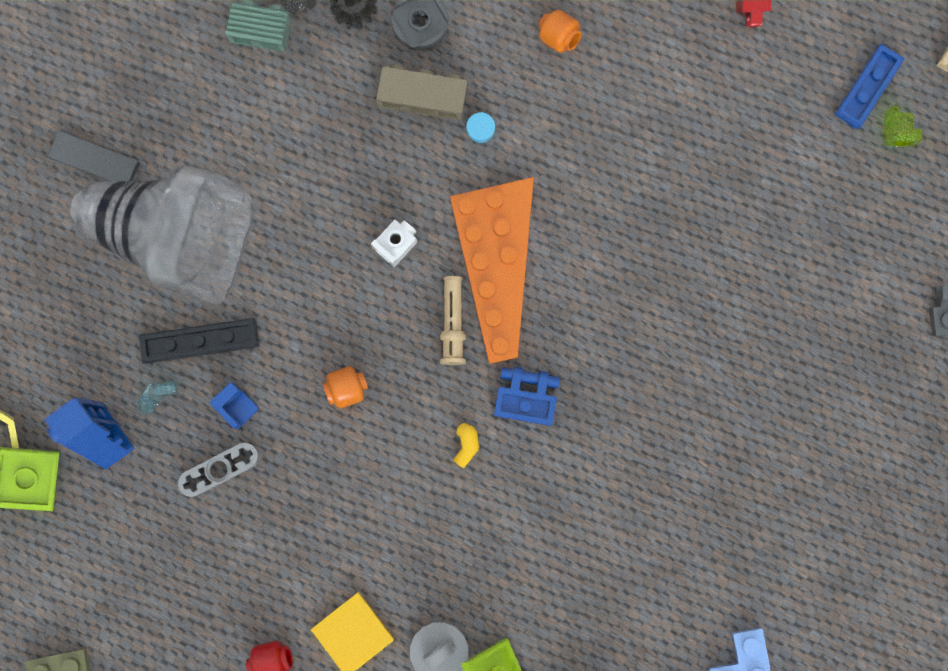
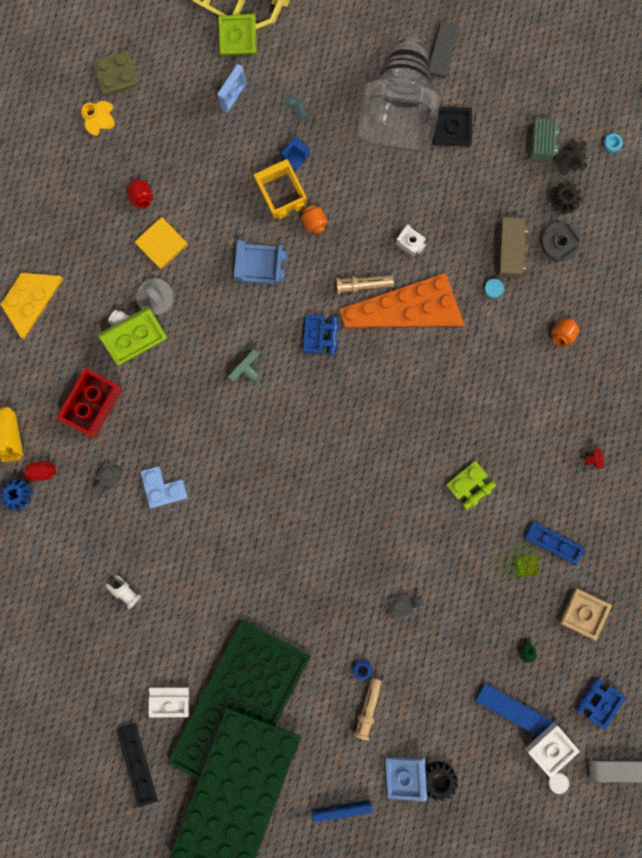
camera: 85 degrees right, 0 degrees up
(89, 431) = (270, 66): blue wedge -> none
(116, 496) = (231, 88): none -> light blue plate
(199, 341) = (334, 128): black tile -> none
(207, 465) = (258, 164): light grey beam -> none
(222, 152) = (453, 127): none -> black plate
(261, 444) = (272, 173): none -> yellow window
(404, 480) = (259, 263): none -> medium blue panel
(469, 442) = (286, 302): yellow arm -> none
(566, 519) = (245, 367): none -> sand green tile
(769, 202) = (466, 481): none -> lime plate

